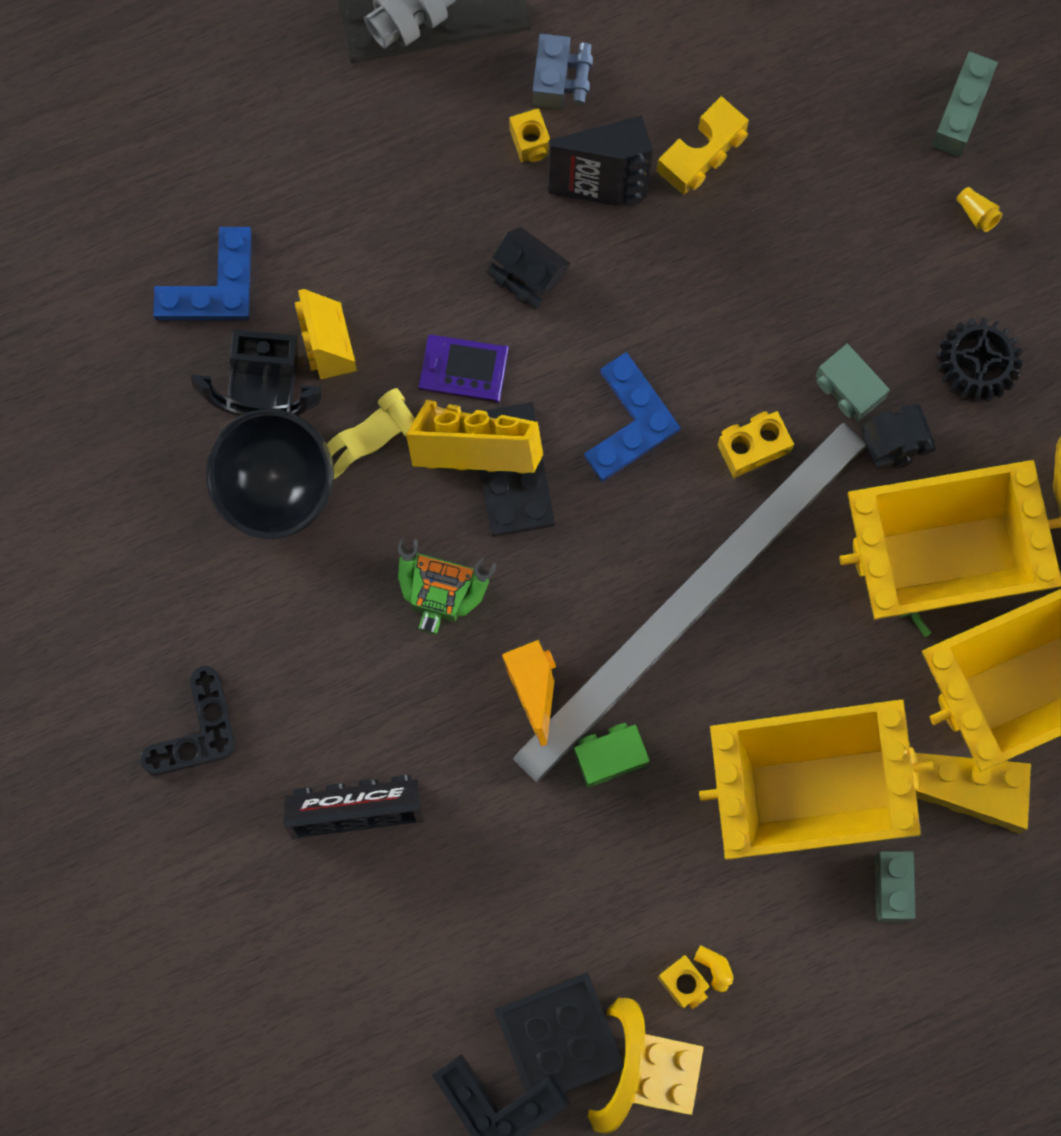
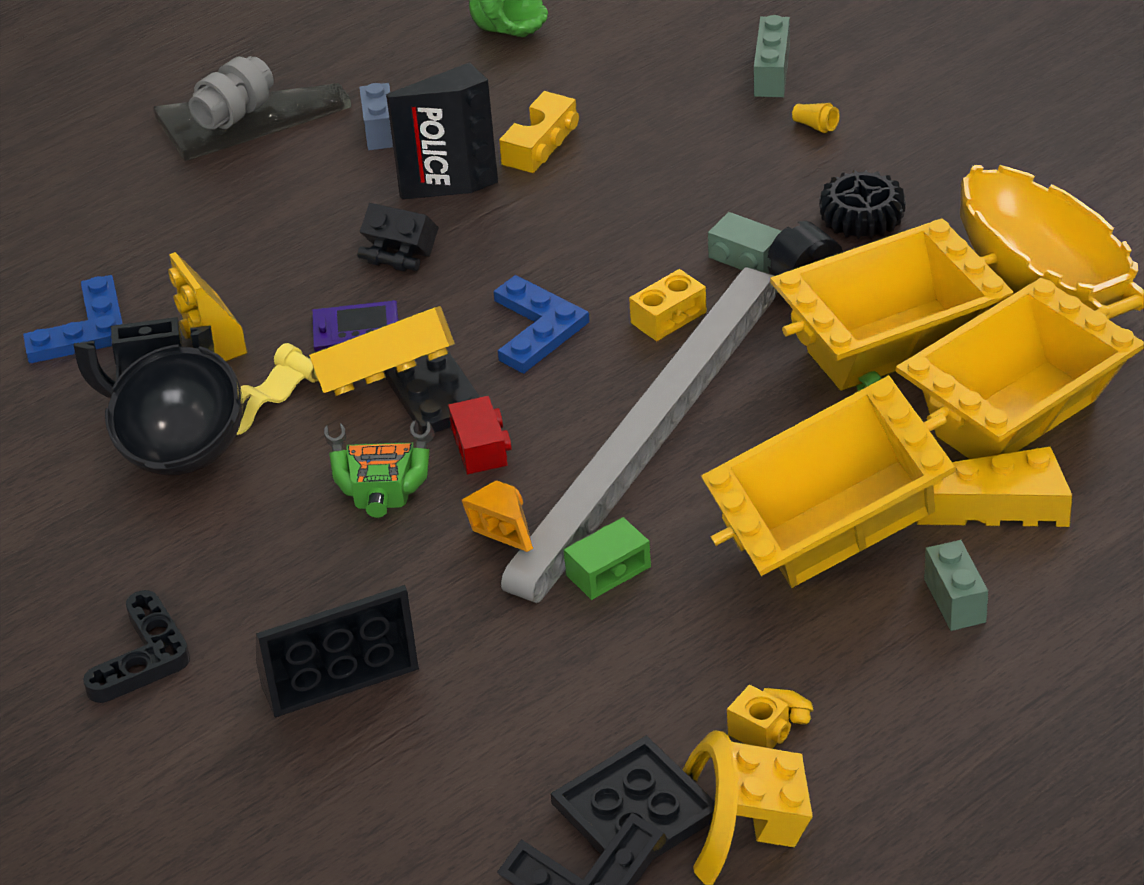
camera: 10 degrees left, 35 degrees down
(525, 124) = (371, 159): yellow brick -> none
(539, 564) = (479, 434): none -> red brick

